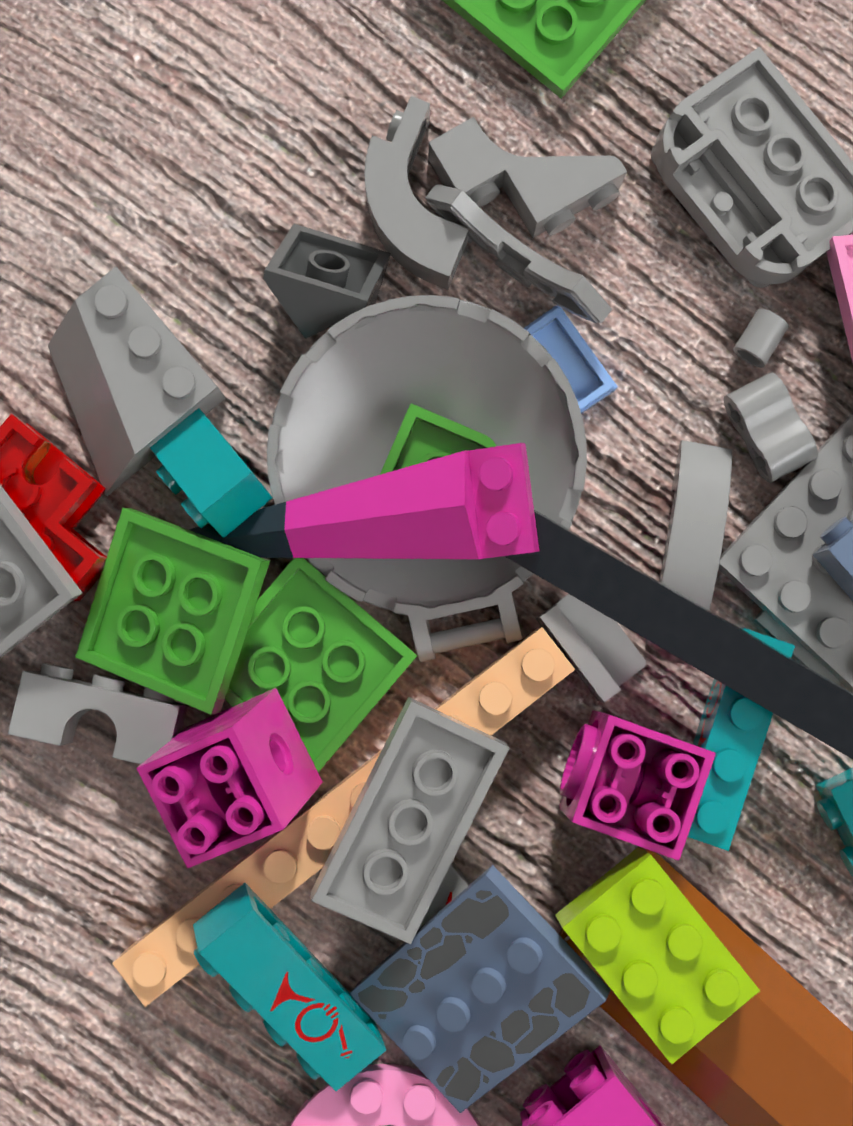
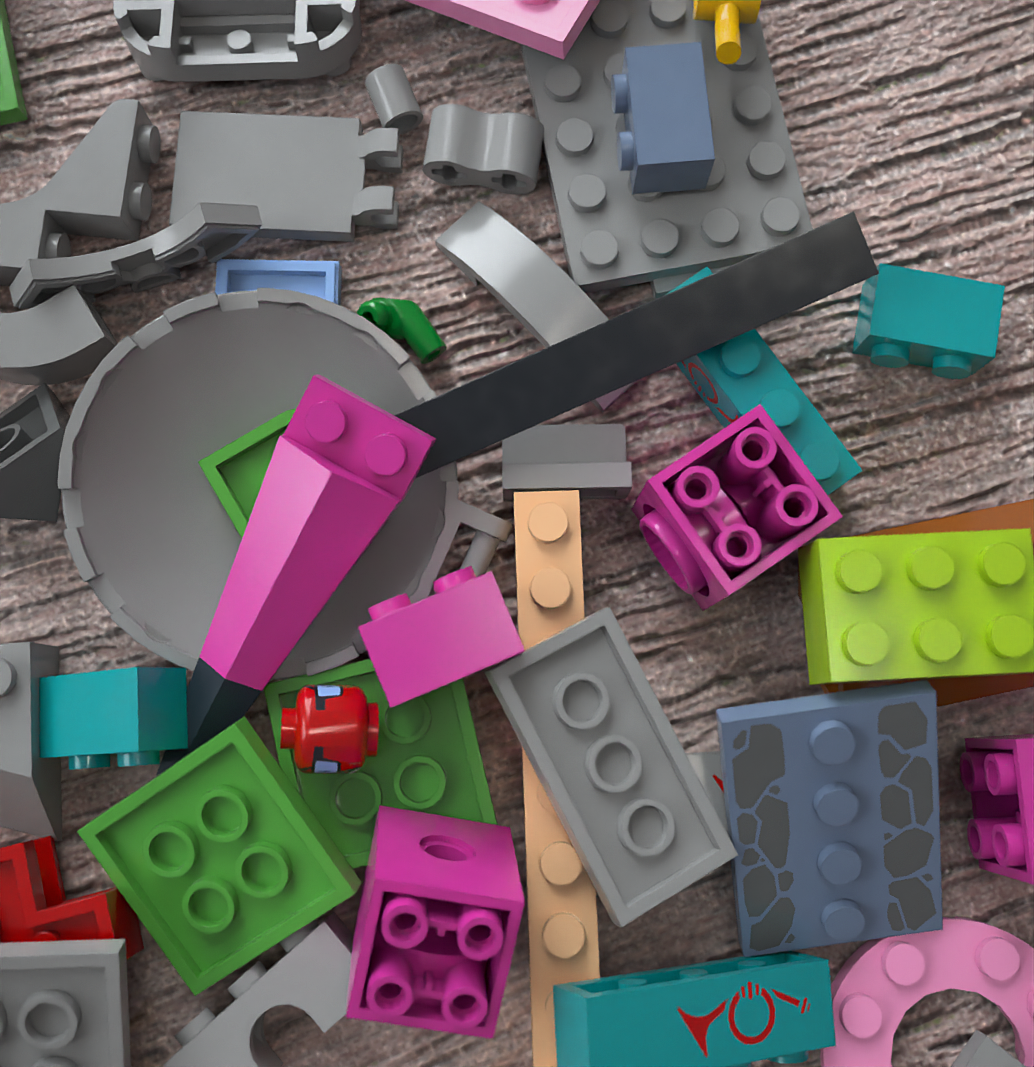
camera: 50 degrees left, 5 degrees down
(301, 621) = (331, 729): none -> red head
(410, 652) = (440, 636): none -> dark pink brick
(608, 461) = (407, 322): none -> green arm
(656, 301) = (294, 168): none -> light grey tile

